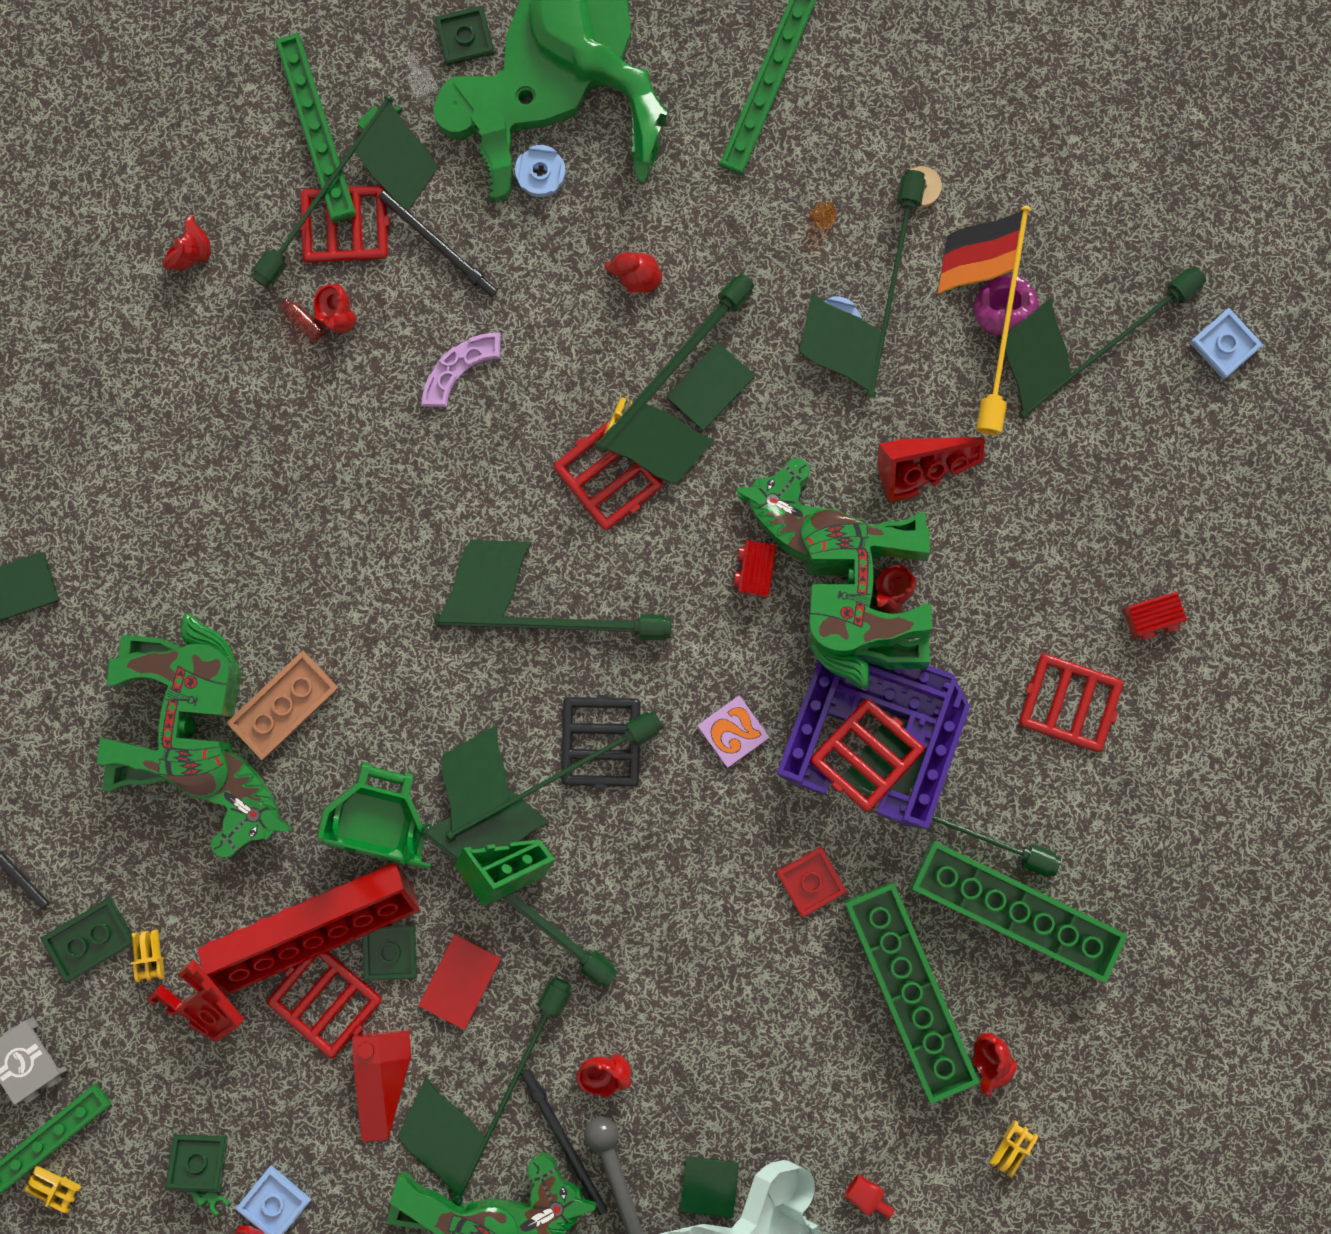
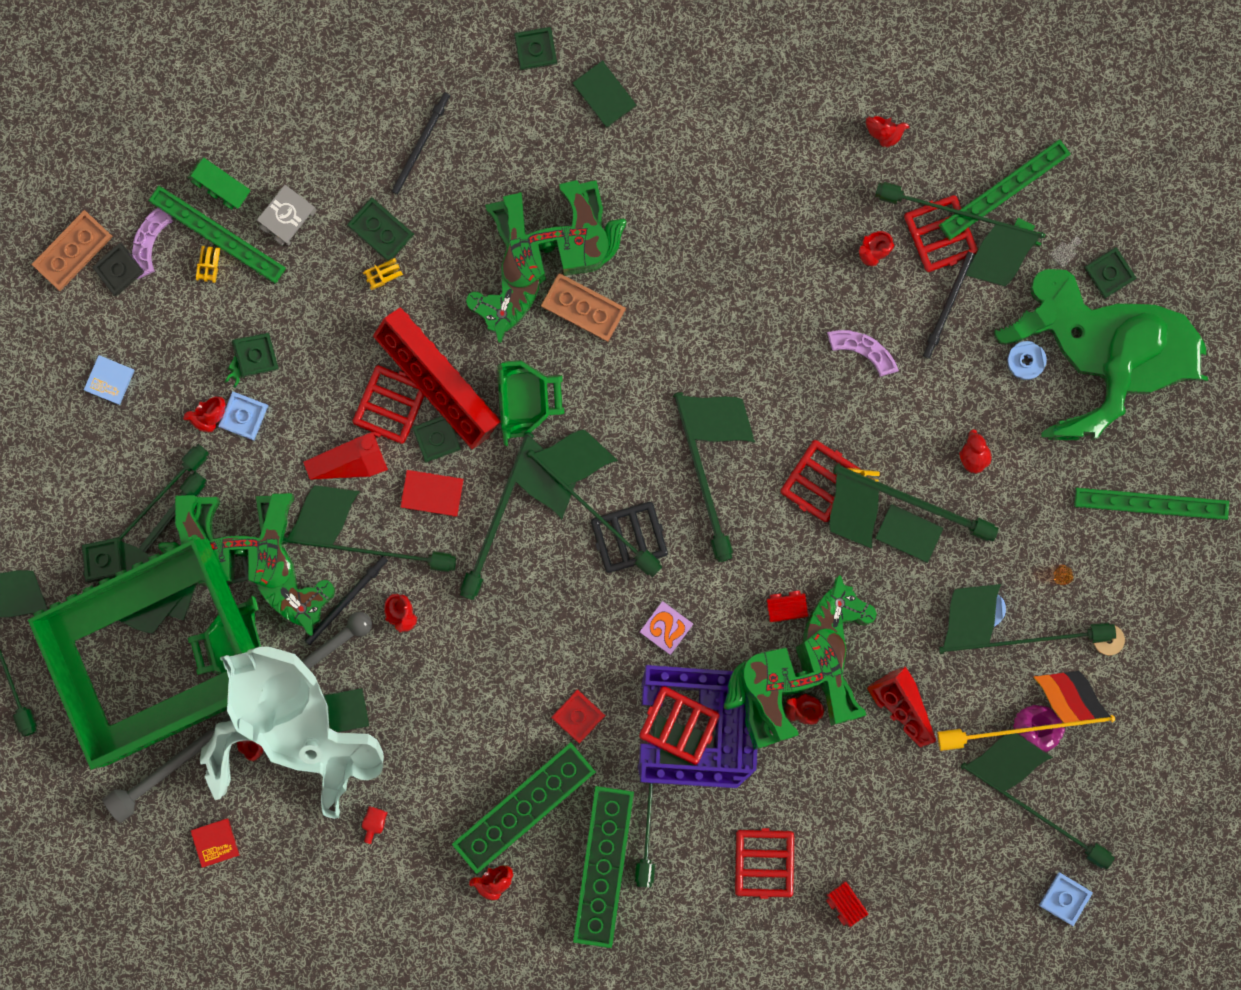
camera: 75 degrees right, 0 degrees up
(206, 1009) = (359, 327): red wing -> none
(303, 320) = (860, 229): clear red cylinder -> none
(503, 869) = (518, 497): green wedge -> none
(1010, 1153) = (438, 914): yellow arm -> none

